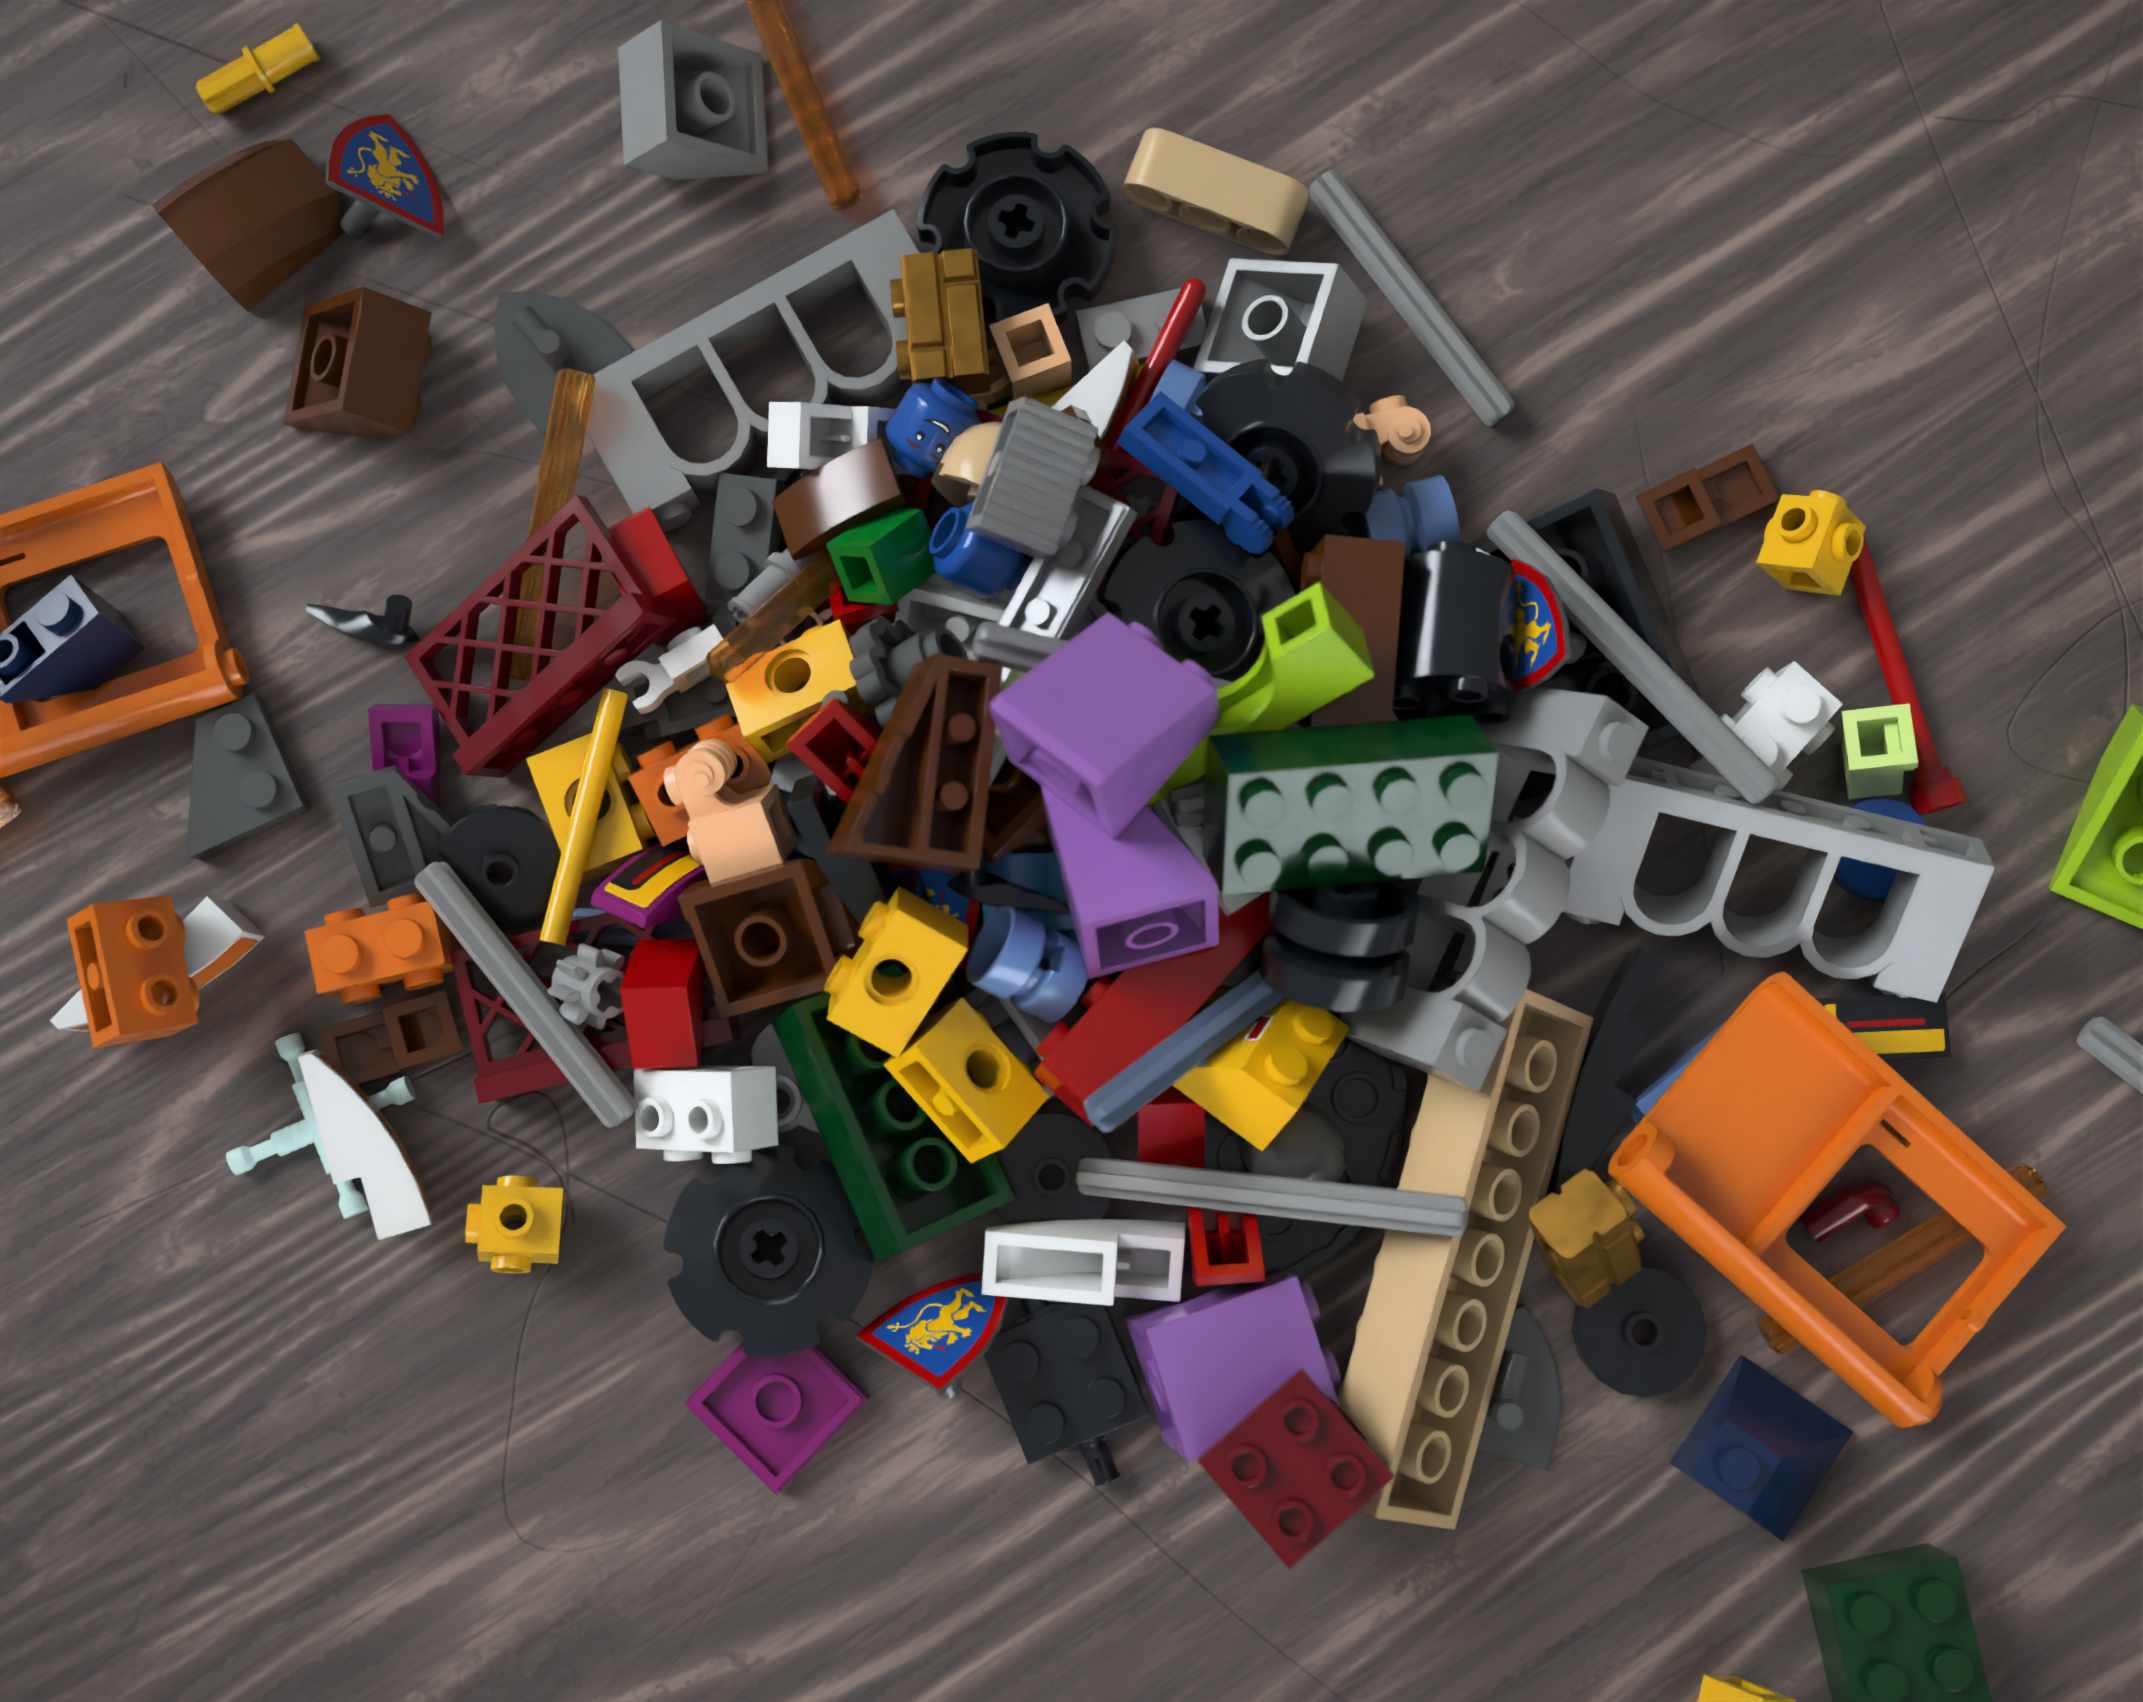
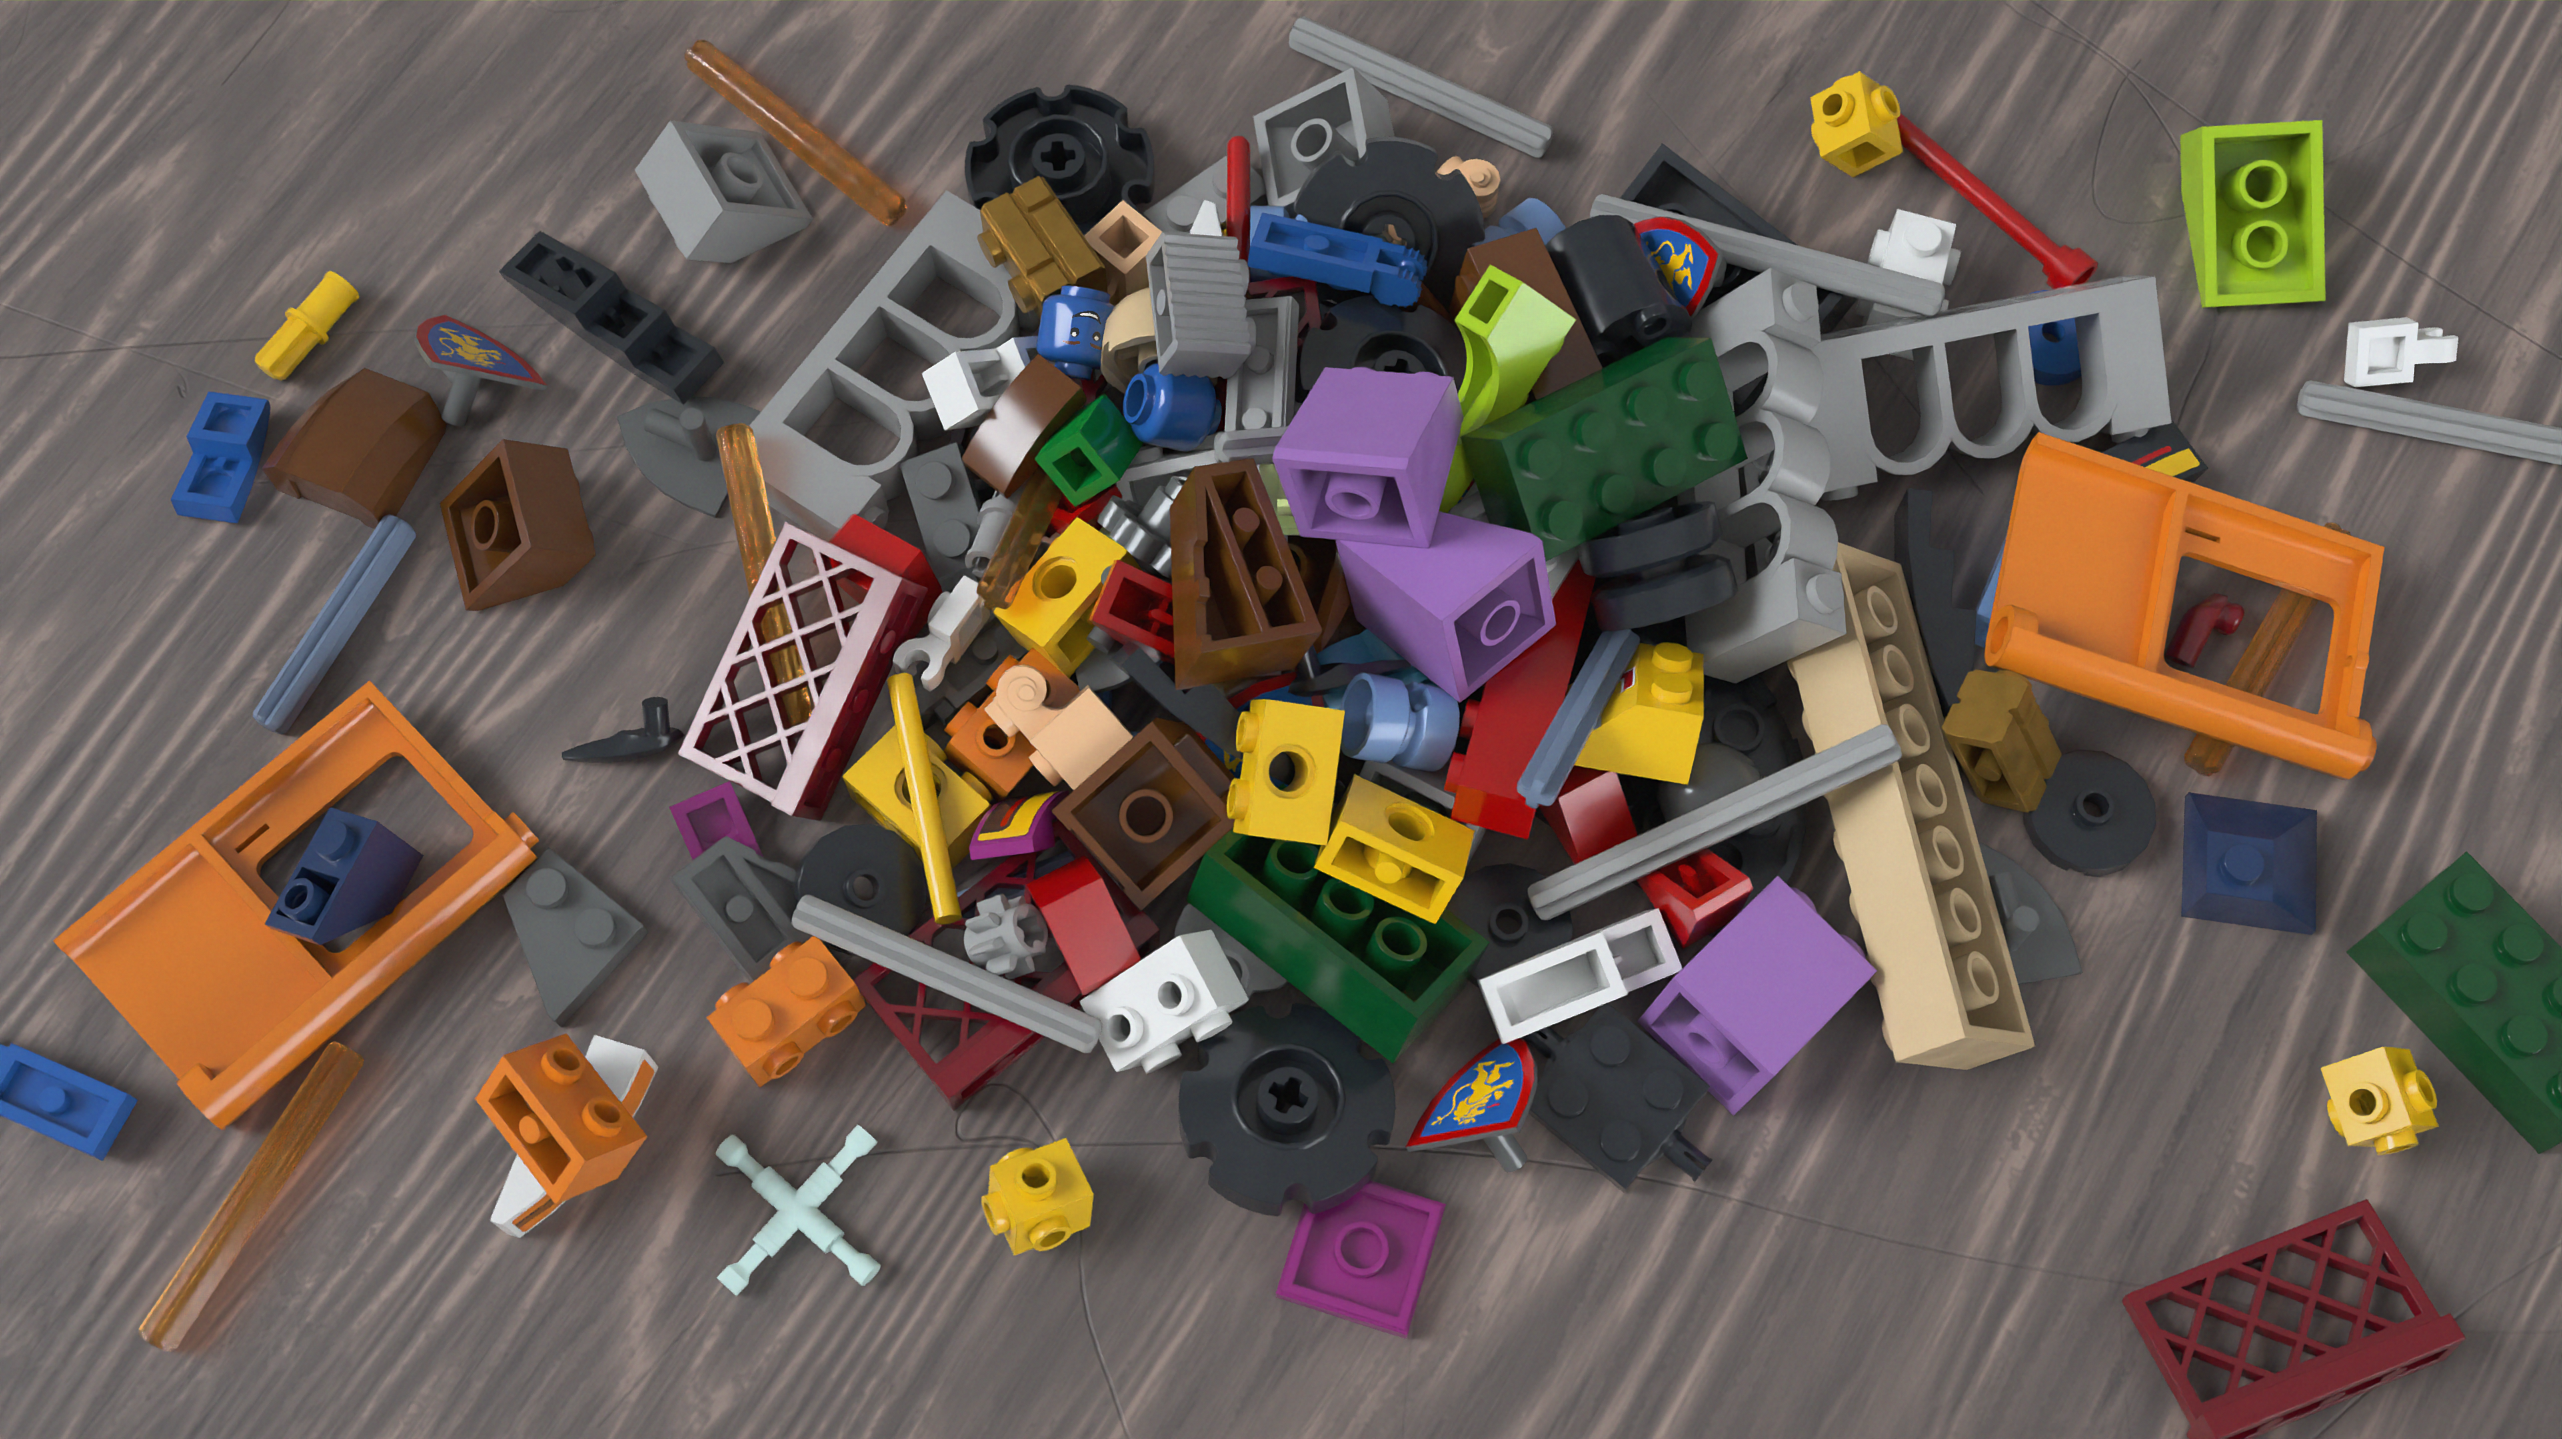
camera: 30 degrees left, 15 degrees down
(139, 165) = (225, 457): none -> blue slope
(162, 384) = (334, 625): none -> sand blue axle
(364, 1145) = (855, 1192): white slope -> none
(393, 1039) = (829, 1100): reddish brown slope -> none
(534, 189) = (611, 317): none -> black slope
(1216, 192) = (1212, 72): tan beam -> none
(1296, 1467) = (1872, 1026): dark red plate -> none
(1708, 499) = (1752, 133): reddish brown slope -> none
(1877, 750) = (2003, 251): yellowish green brick -> none

